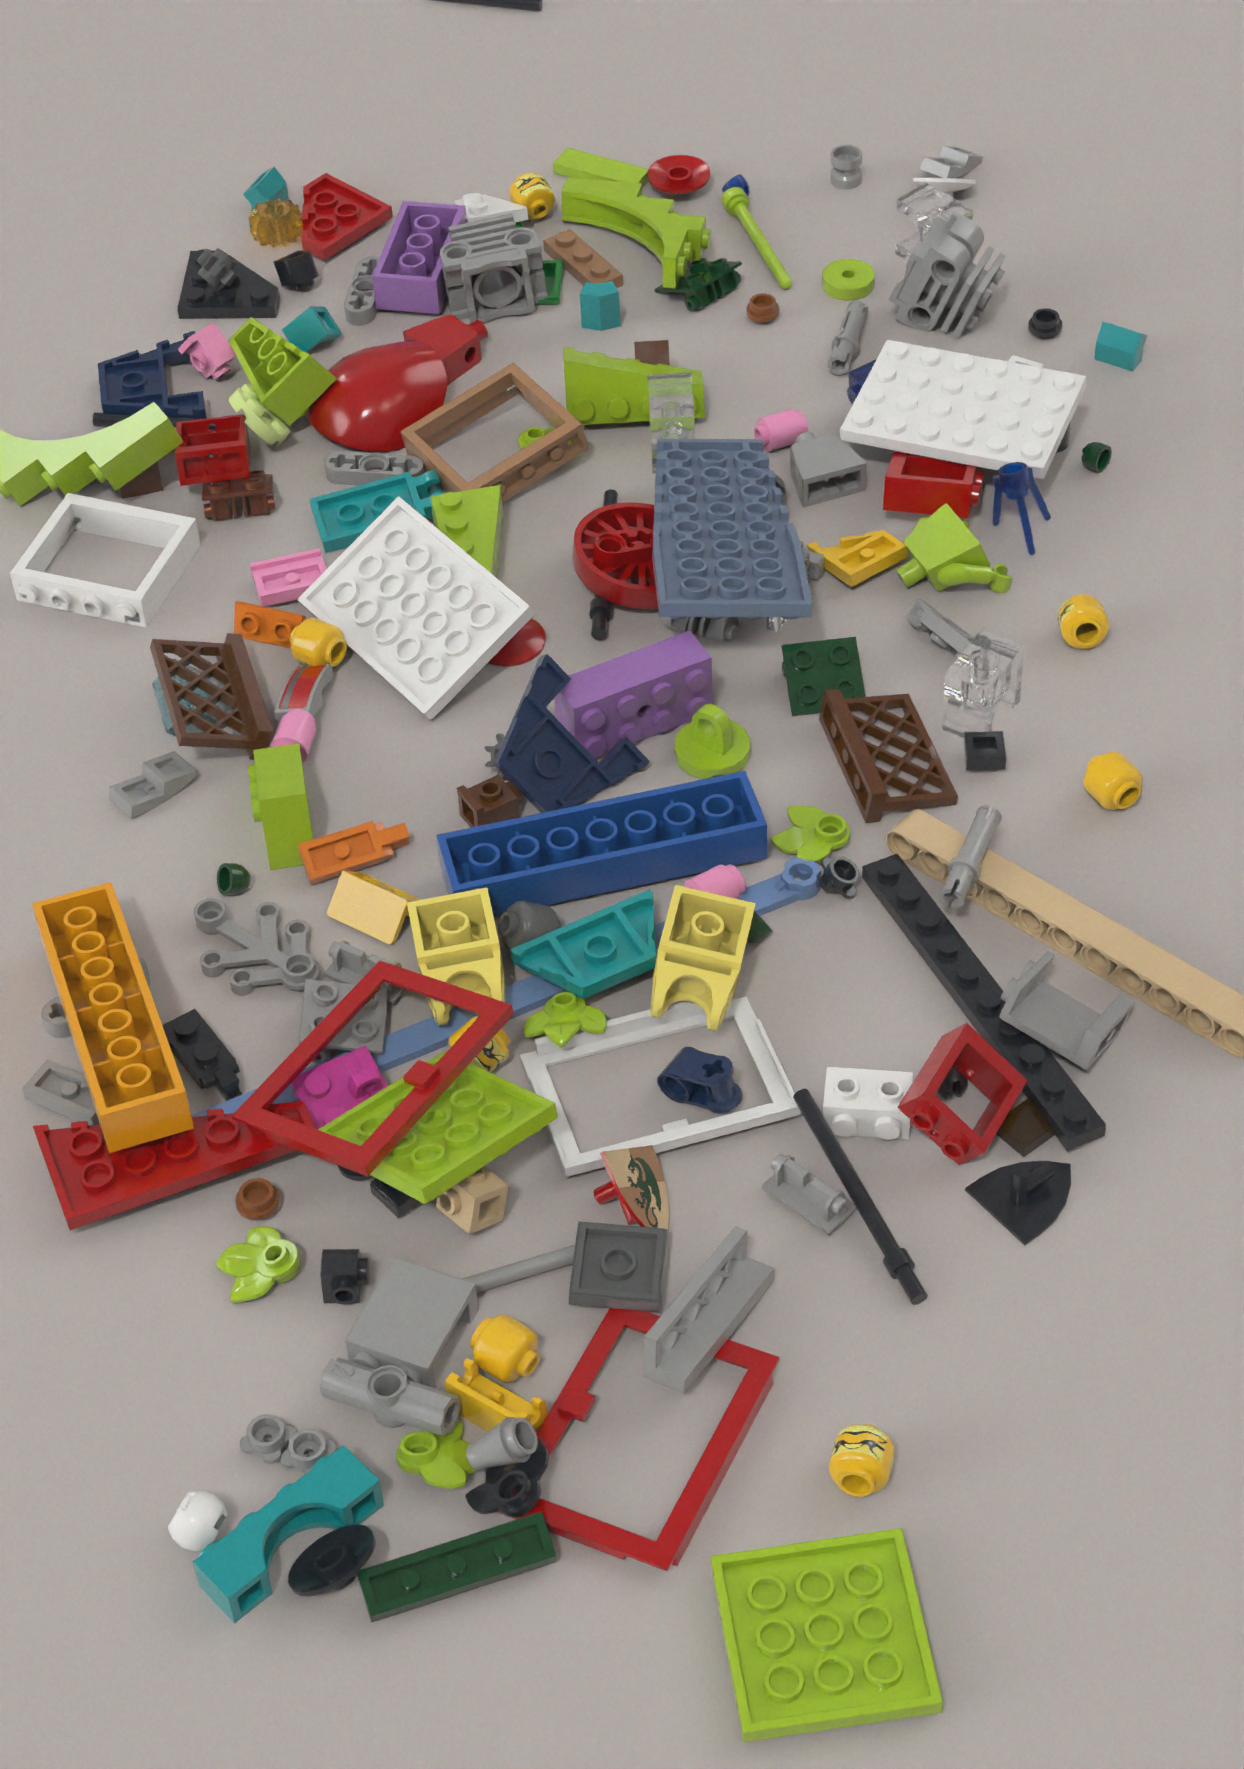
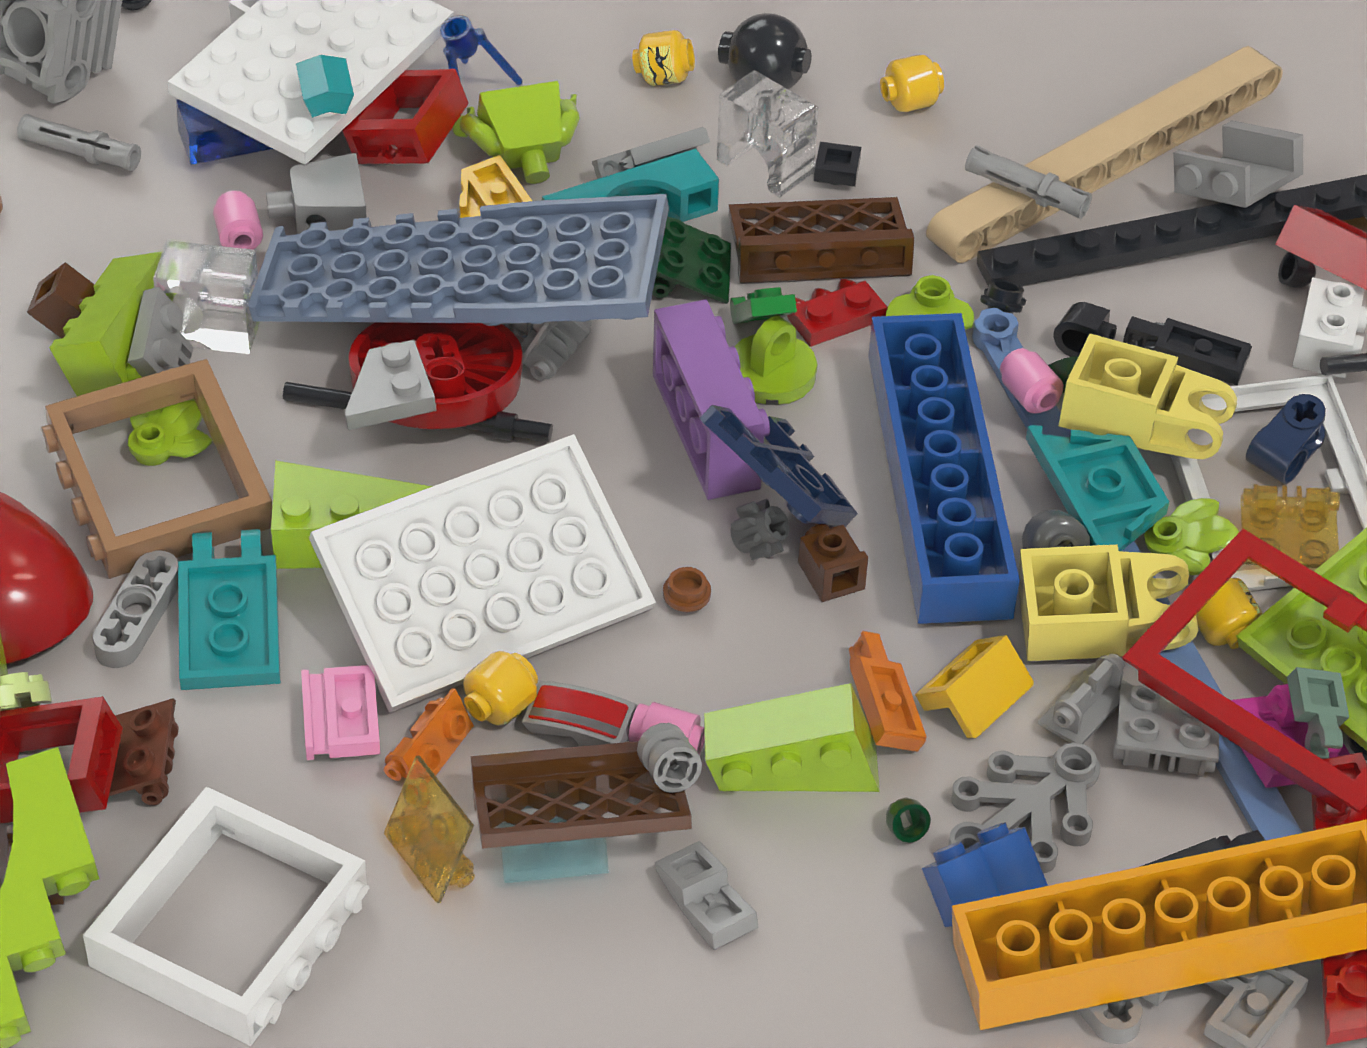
camera: 85 degrees left, 0 degrees up
(168, 916) = (993, 867): none -> blue brick
(177, 623) = (431, 832): none -> clear yellow hinge
(235, 719) = (669, 757): none -> light grey wheel
(348, 1087) = (1321, 702): none -> sand green plate
(445, 731) = (687, 590): none -> dark orange plate
(582, 519) = (390, 387): none -> light grey wing
(585, 1080) = (1294, 525): none -> clear yellow hinge
(615, 410) = (157, 335): none -> light grey hinge
(751, 713) = (762, 305): none -> green plate
(795, 779) = (836, 312): none -> red plate
(809, 932) = (1078, 323): none -> black plate
(810, 1009) = (1195, 347): none -> black hinge
(854, 607) = (684, 178): none -> teal arch
(898, 410) = (325, 84): none -> teal piece
(1109, 680) = (768, 46): none -> black brick

